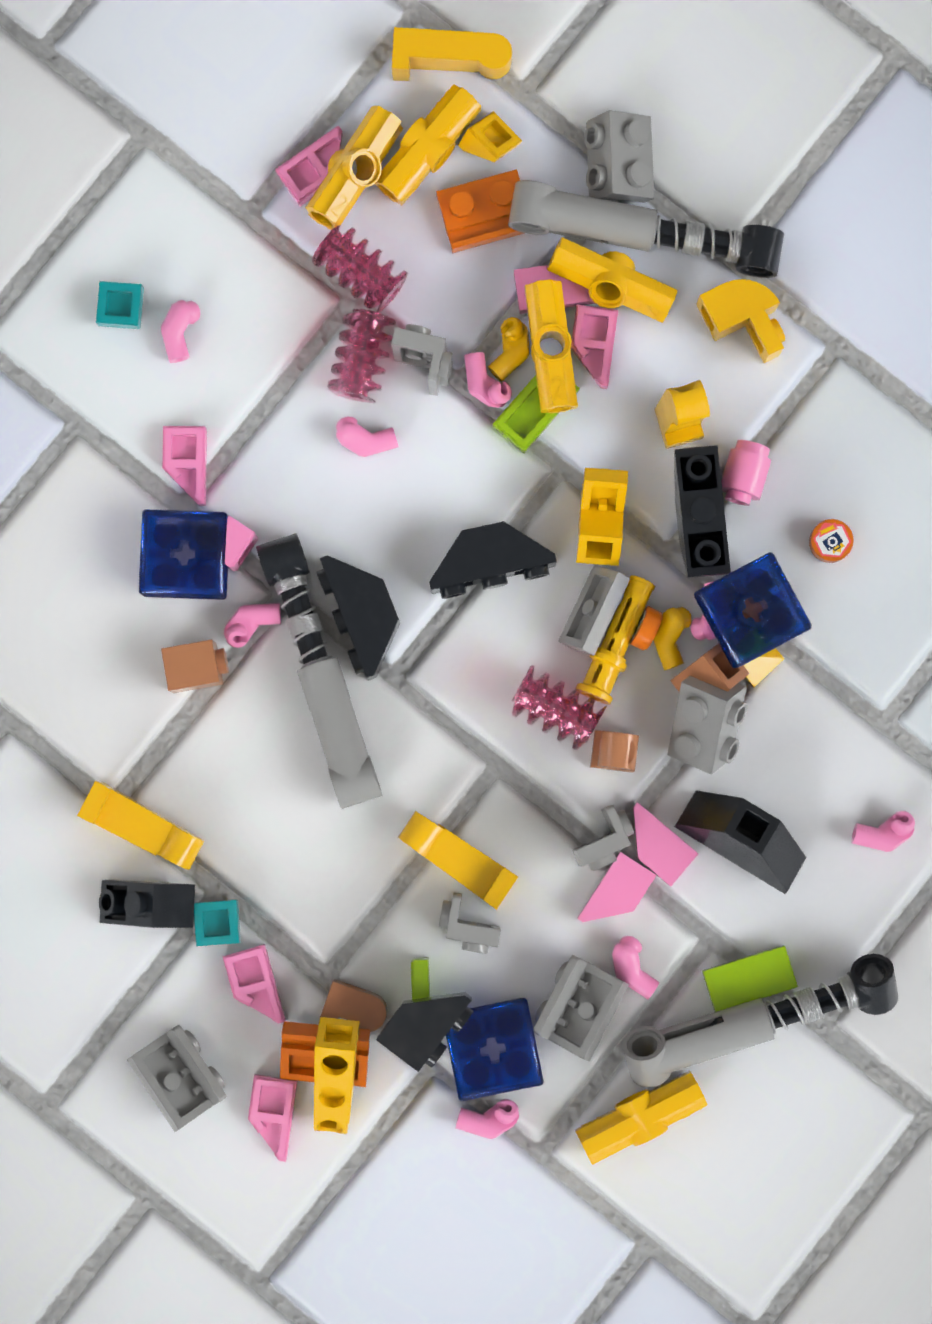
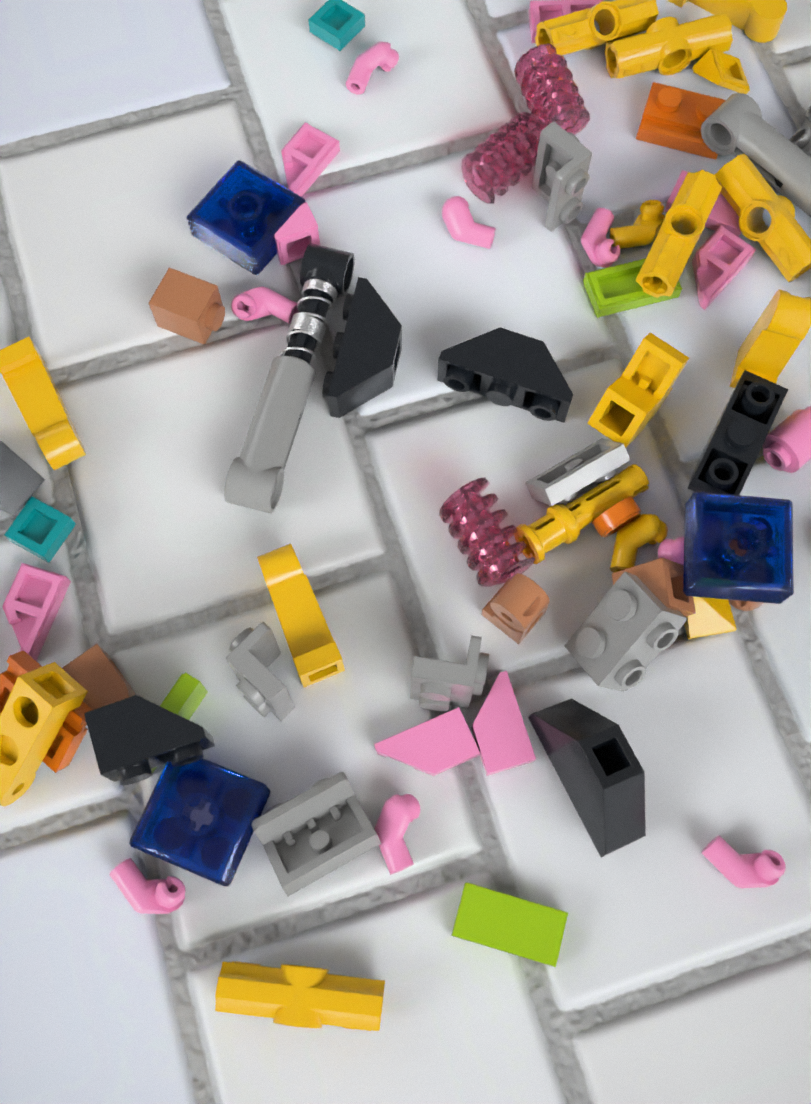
camera: 30 degrees right, 15 degrees down
(656, 1053) = (363, 936): piece -> none

